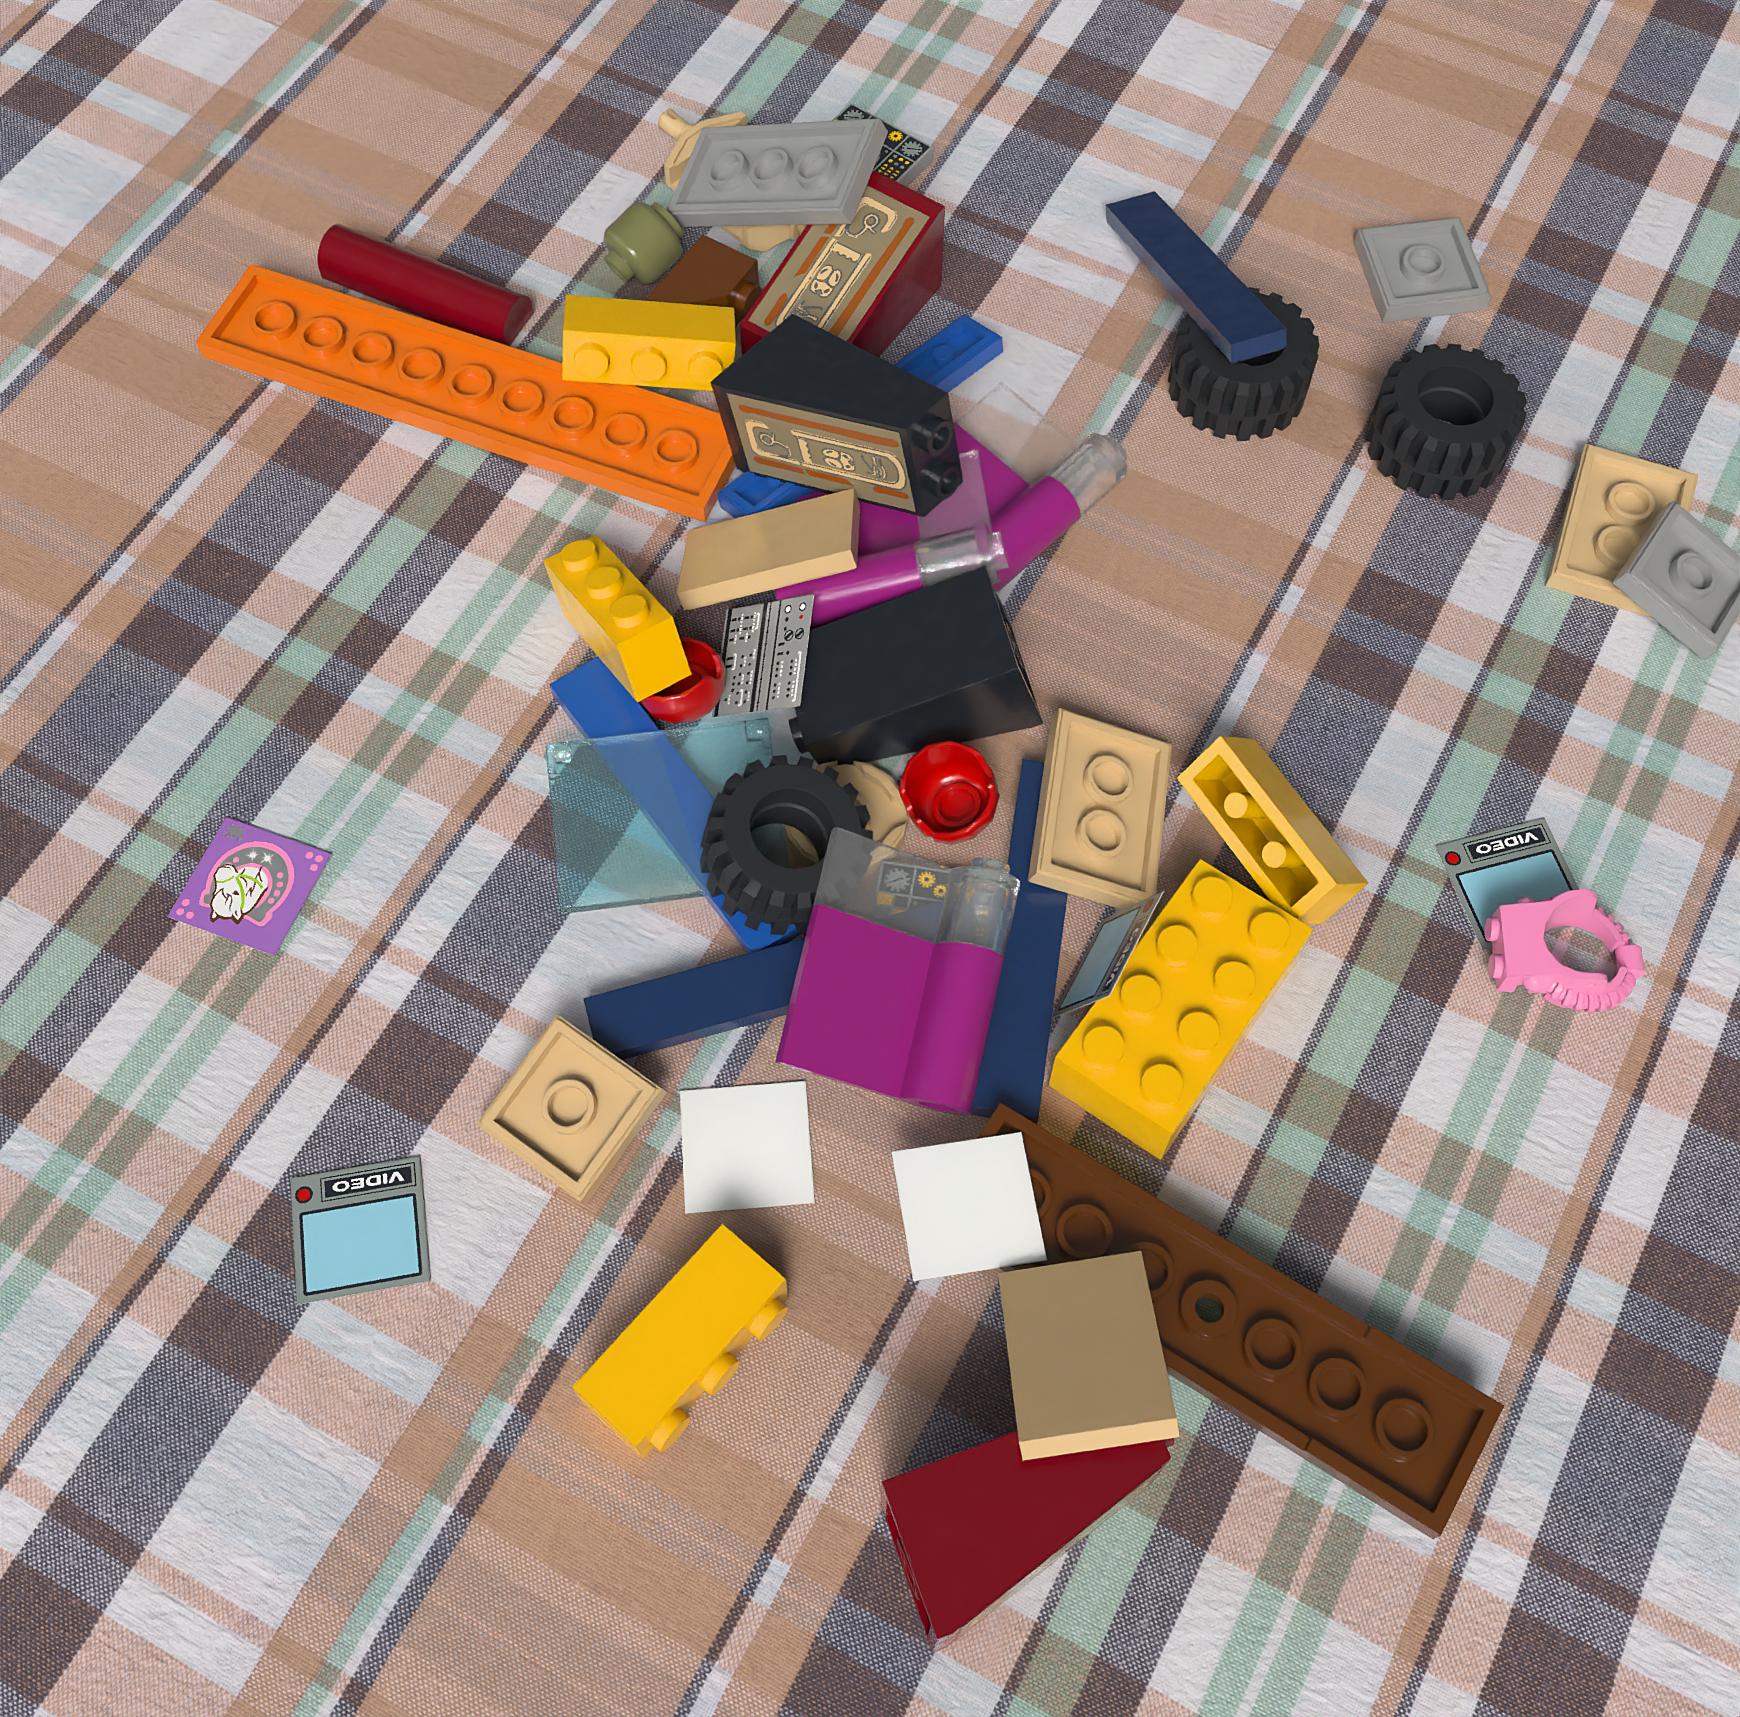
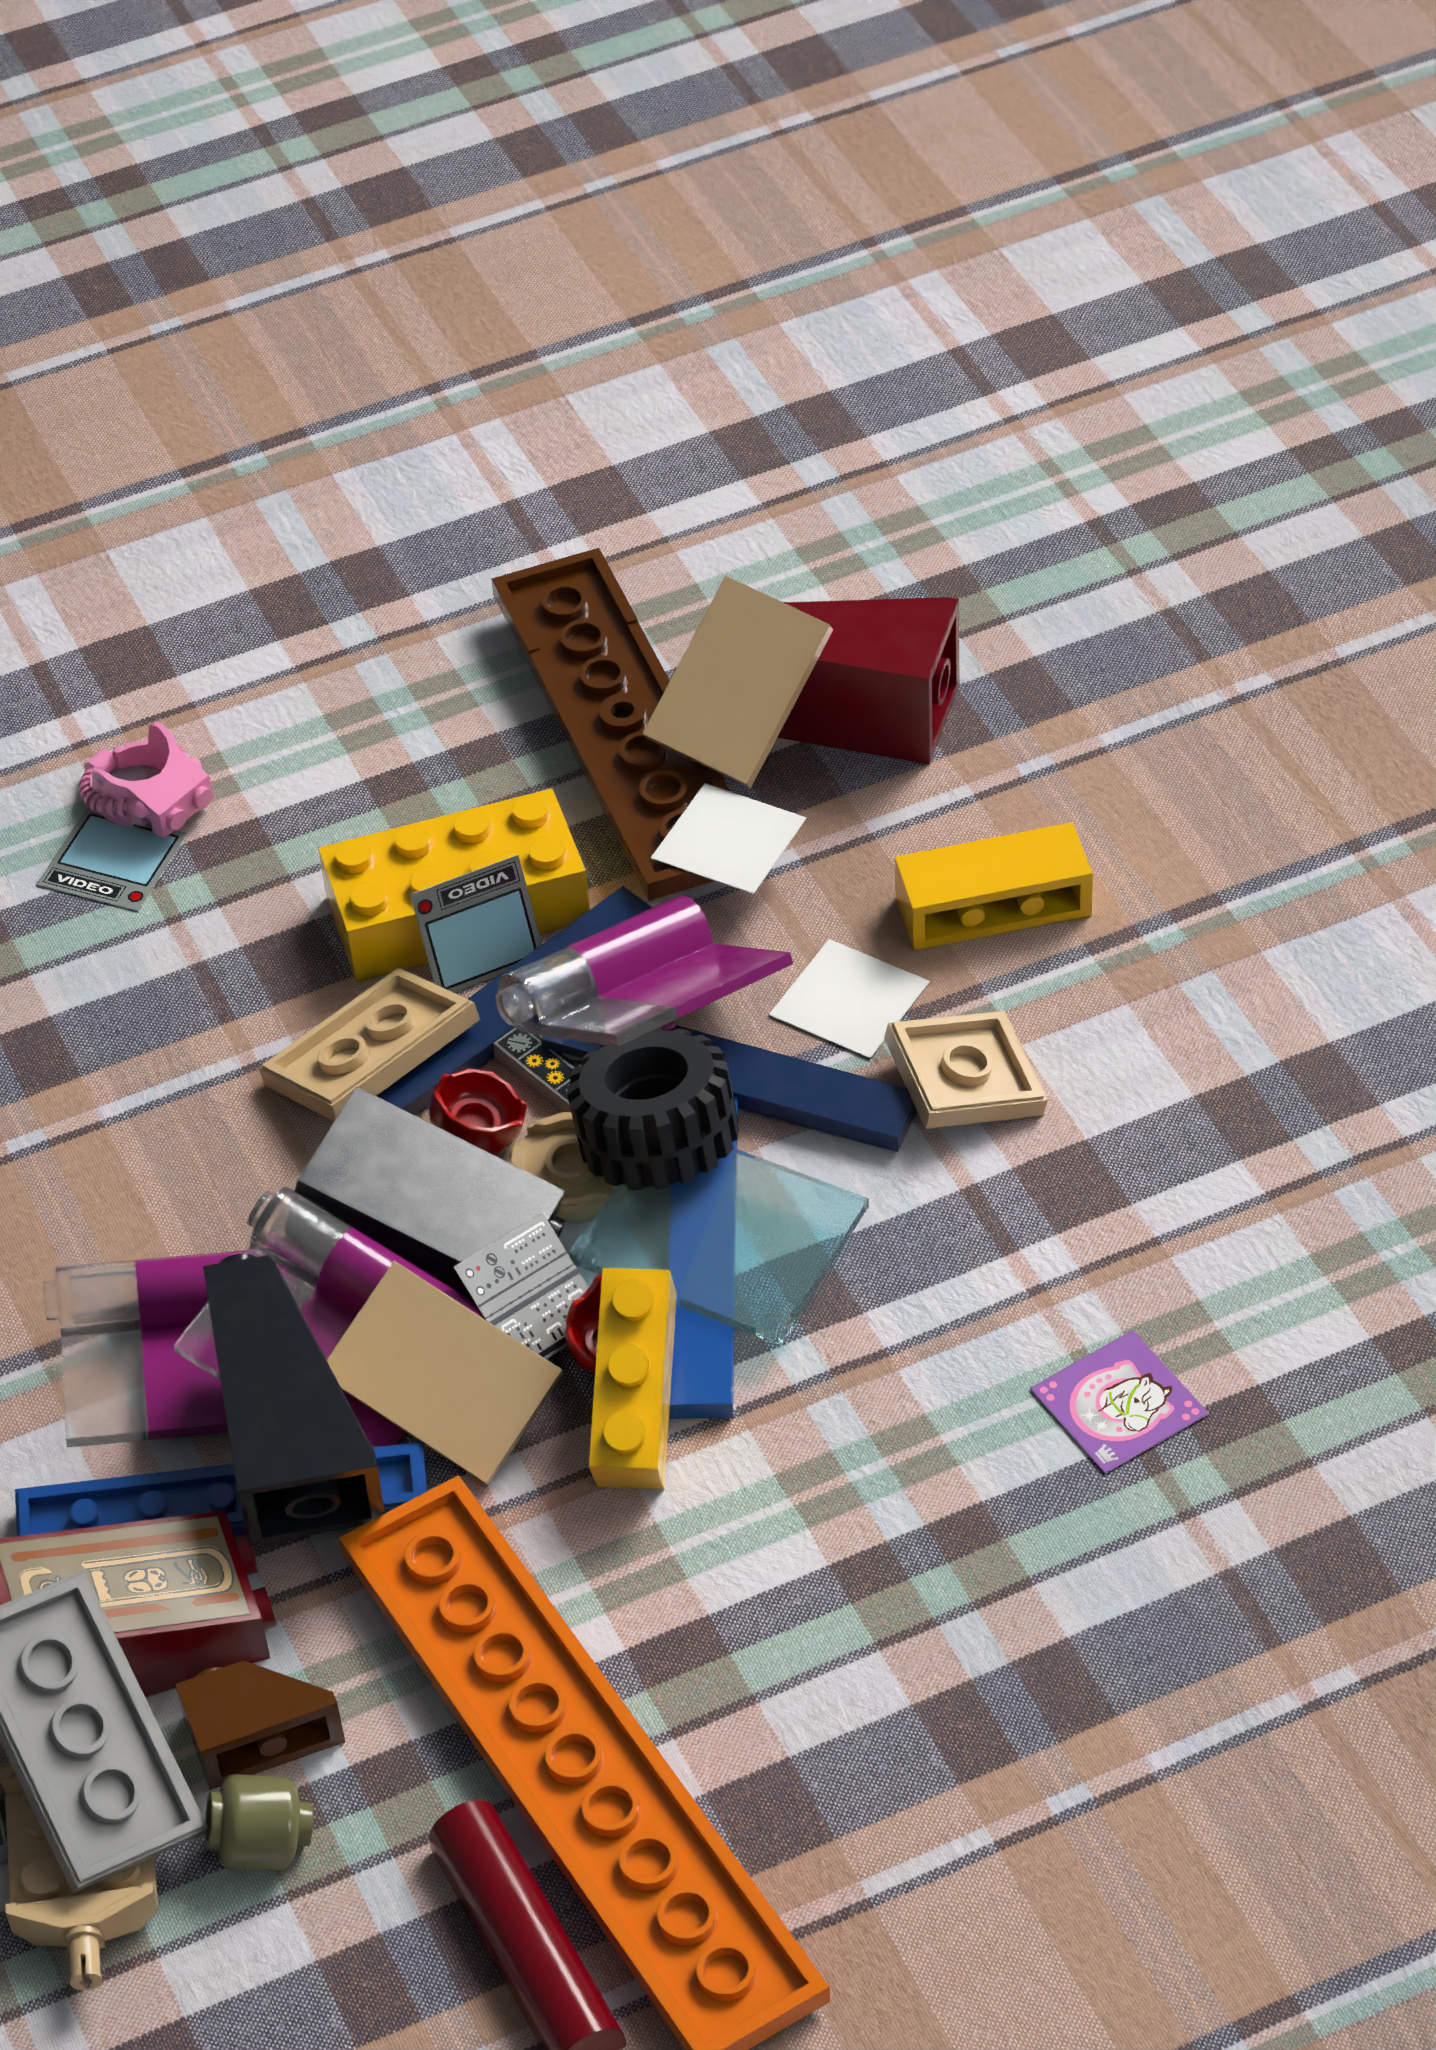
camera: 140 degrees left, 15 degrees down
(359, 1230) = (1186, 1097): sticker -> none
(646, 342) = (368, 1660): yellow brick -> none
(1271, 830) = (263, 946): yellow brick -> none

